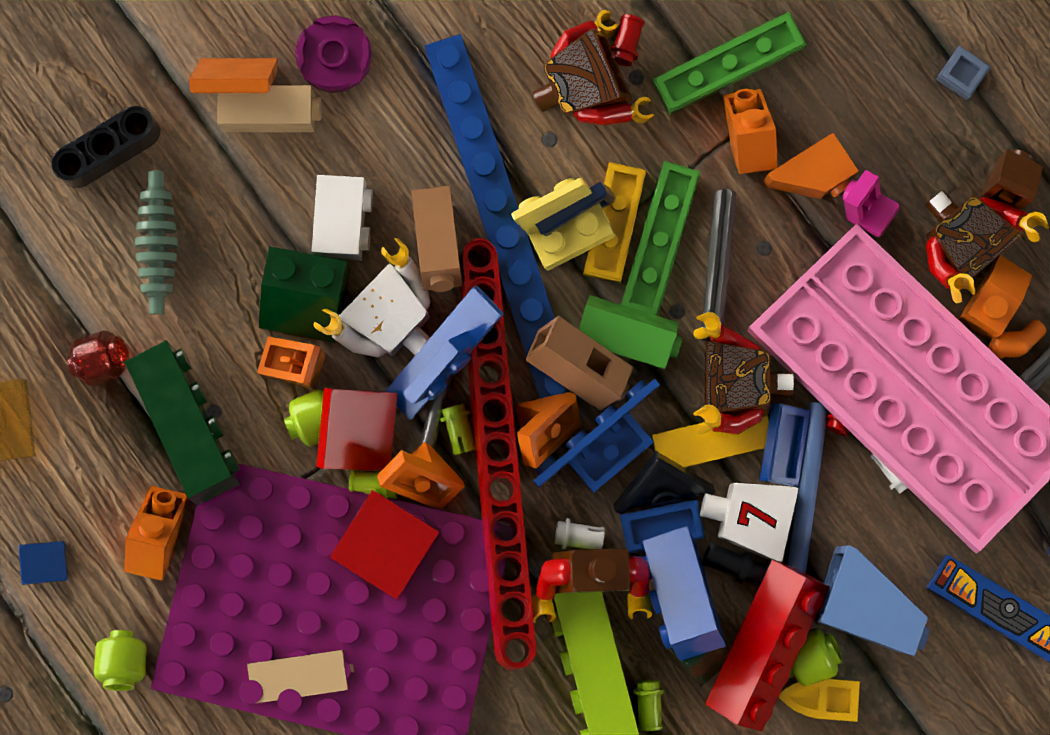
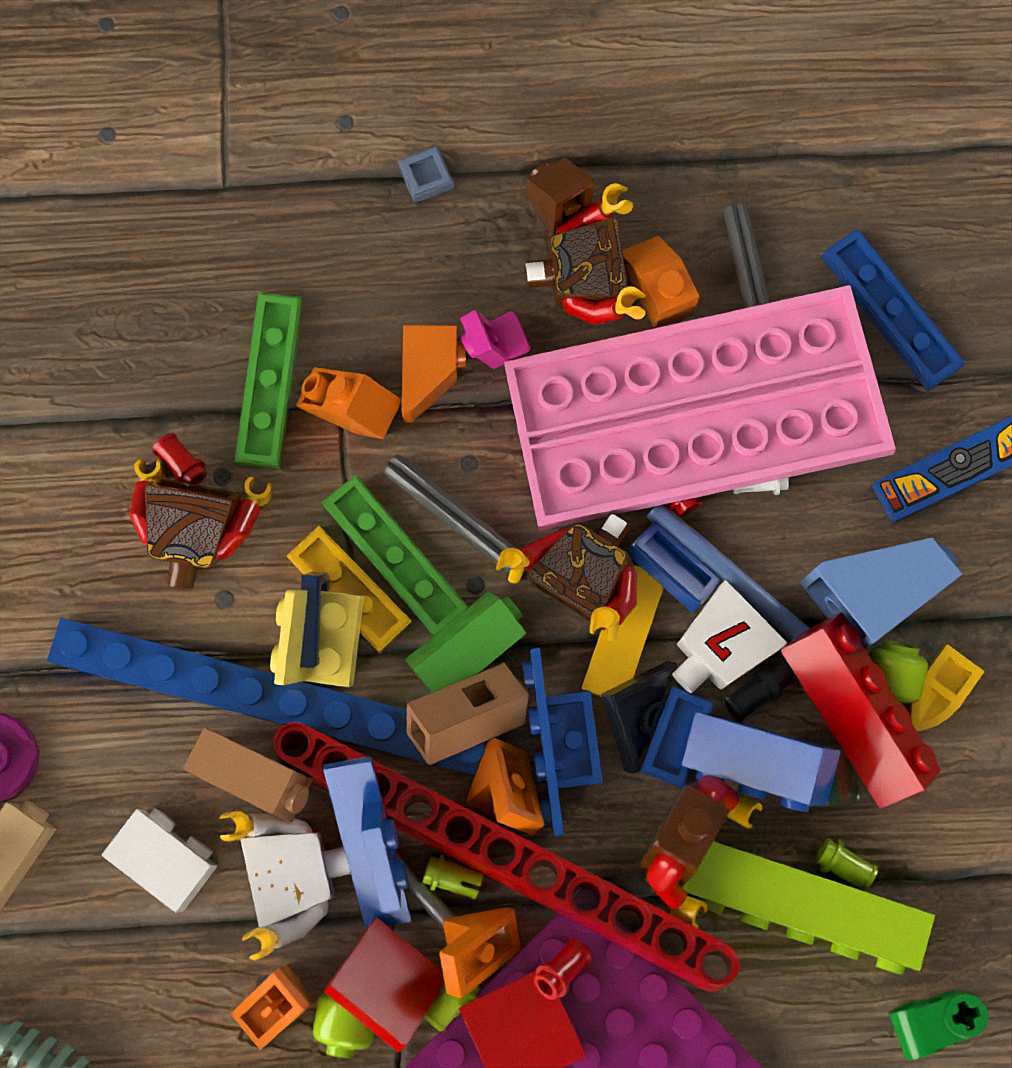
camera: 60 degrees left, 5 degrees down
(298, 289) = (205, 952): dark green slope -> none
(436, 542) = (554, 977): none -> red pin
(578, 535) = (635, 825): white pin -> none
(1017, 342) = (713, 289): orange arm -> none

